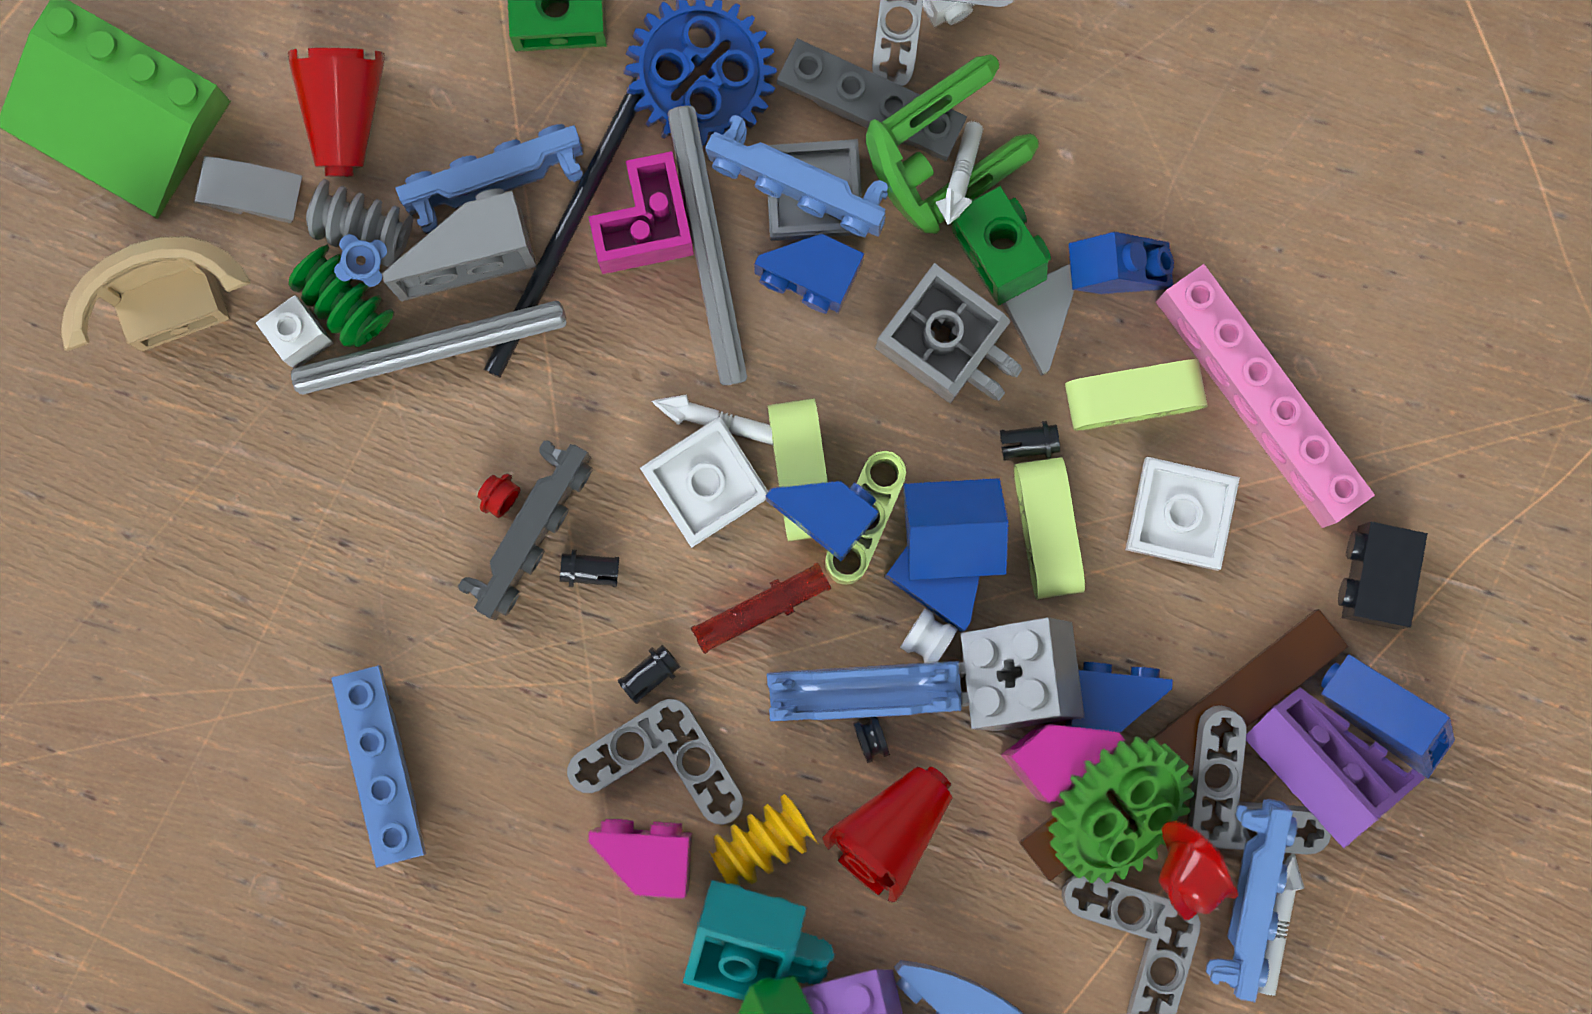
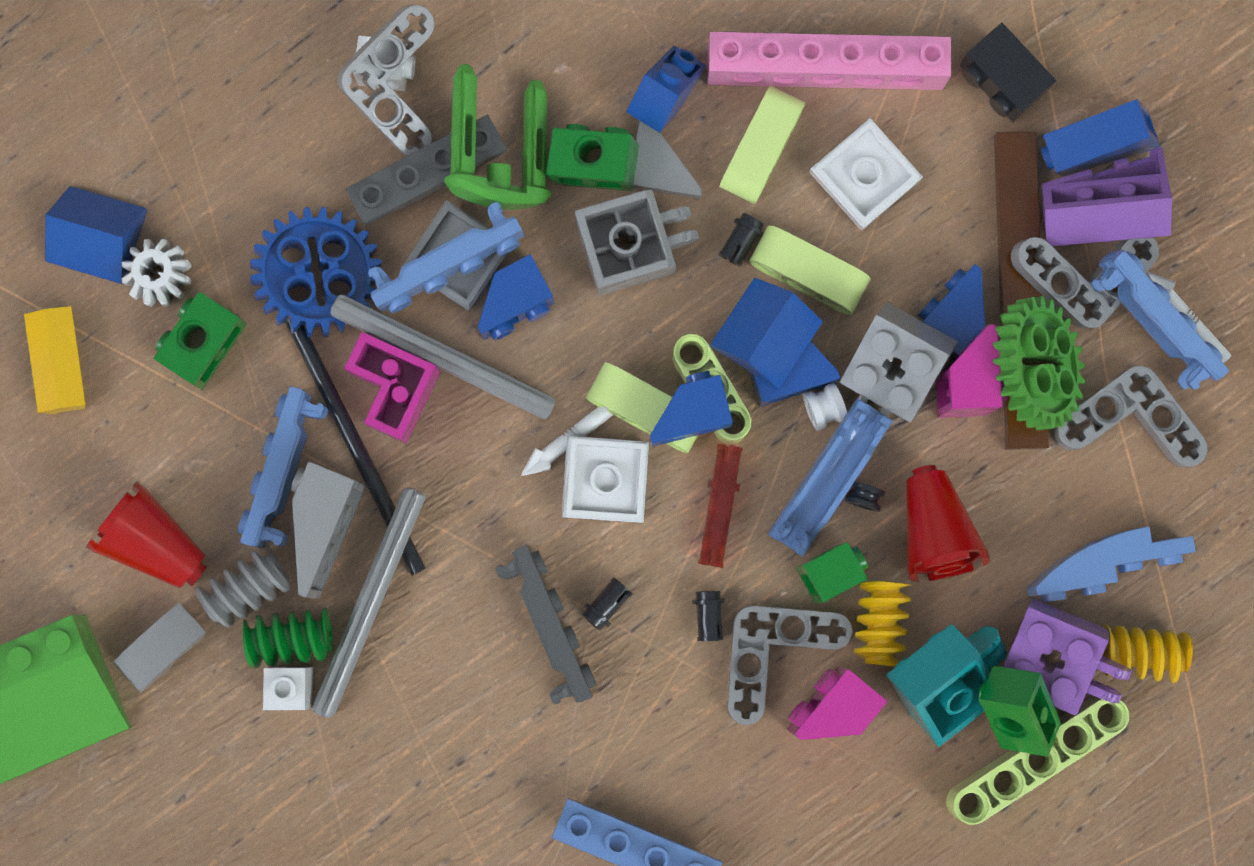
camera: 50 degrees left, 0 degrees up
(158, 291) = (187, 764): tan piece -> none
(351, 249) = (262, 603): medium blue plate -> none
(498, 495) = (507, 629): red plate -> none
(774, 759) = (833, 572): none -> green brick
(955, 199) = (542, 165): white piece -> none
(1193, 872) = (1114, 346): red piece -> none

